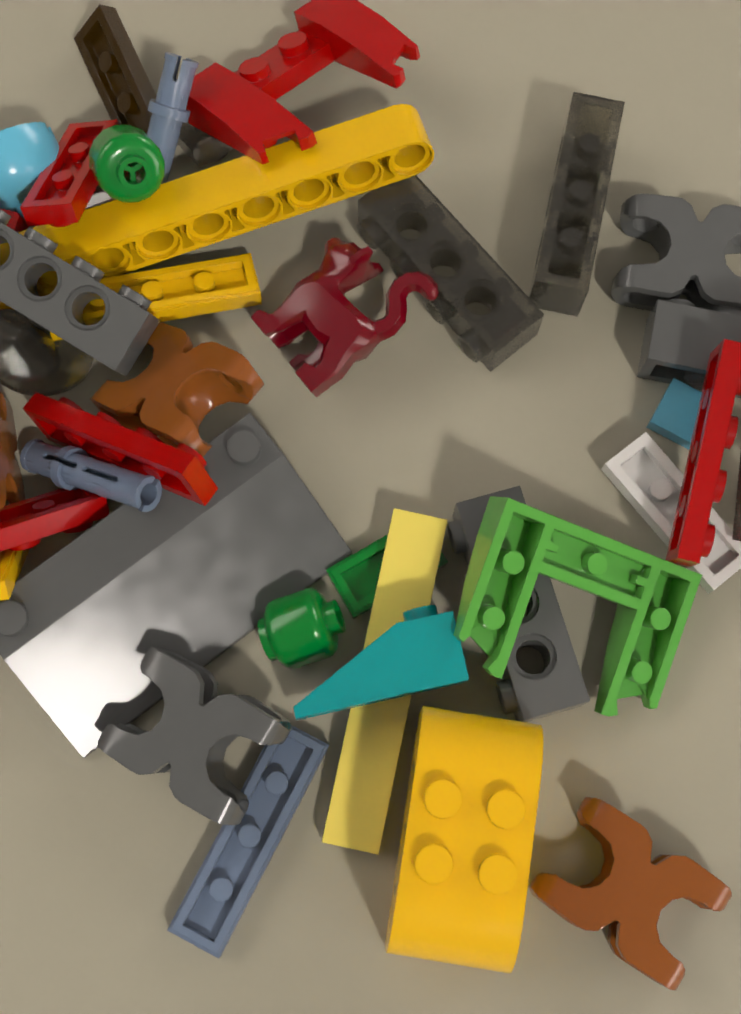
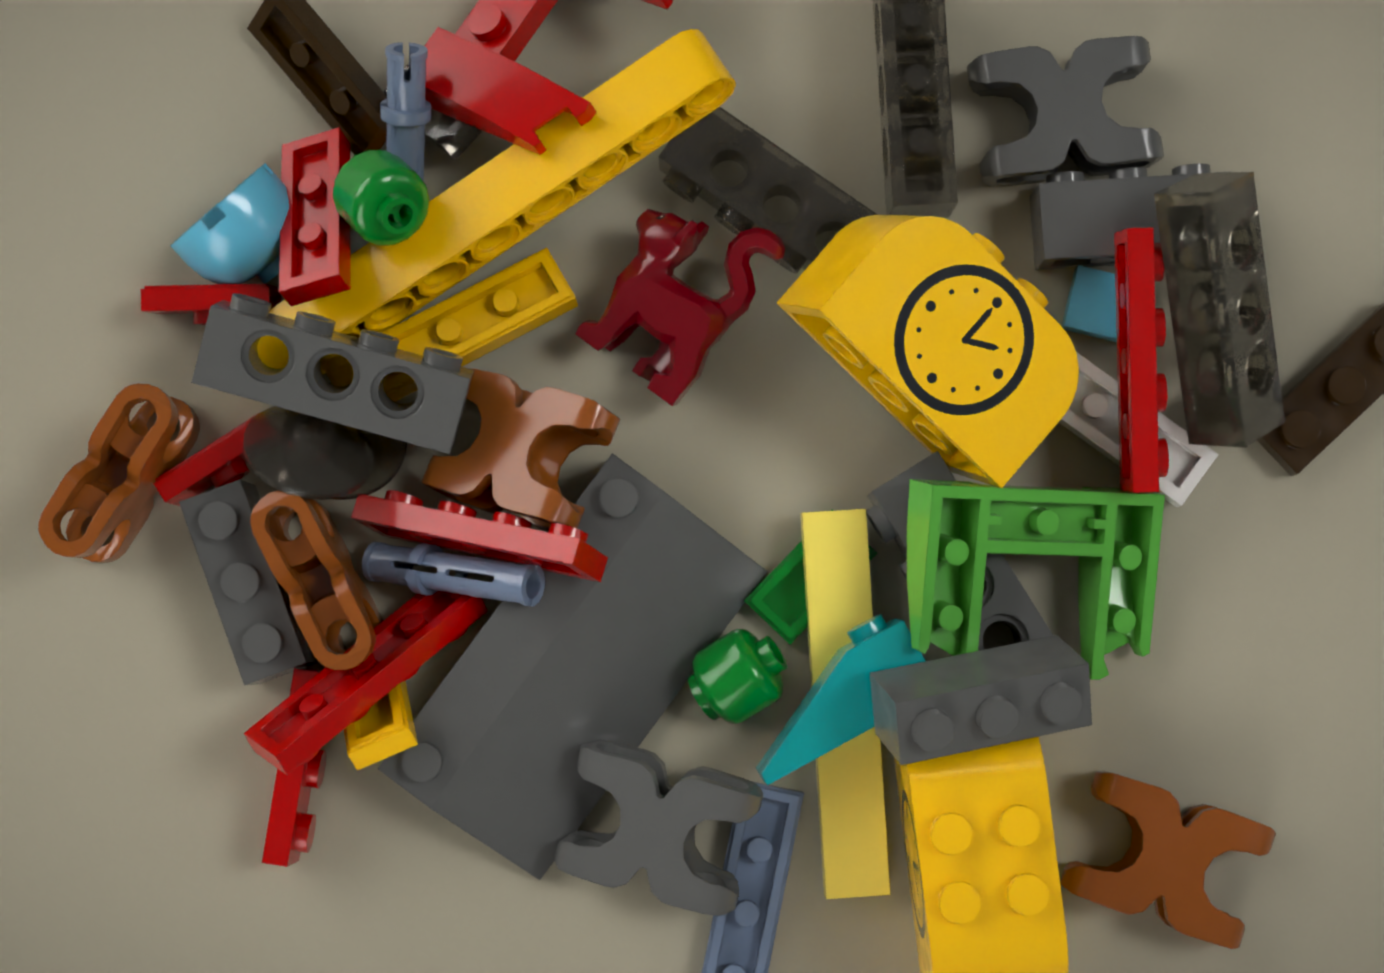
camera: 10 degrees left, 10 degrees up
(501, 693) = (980, 699): none -> dark grey brick
(547, 388) = (941, 338): none -> yellow brick

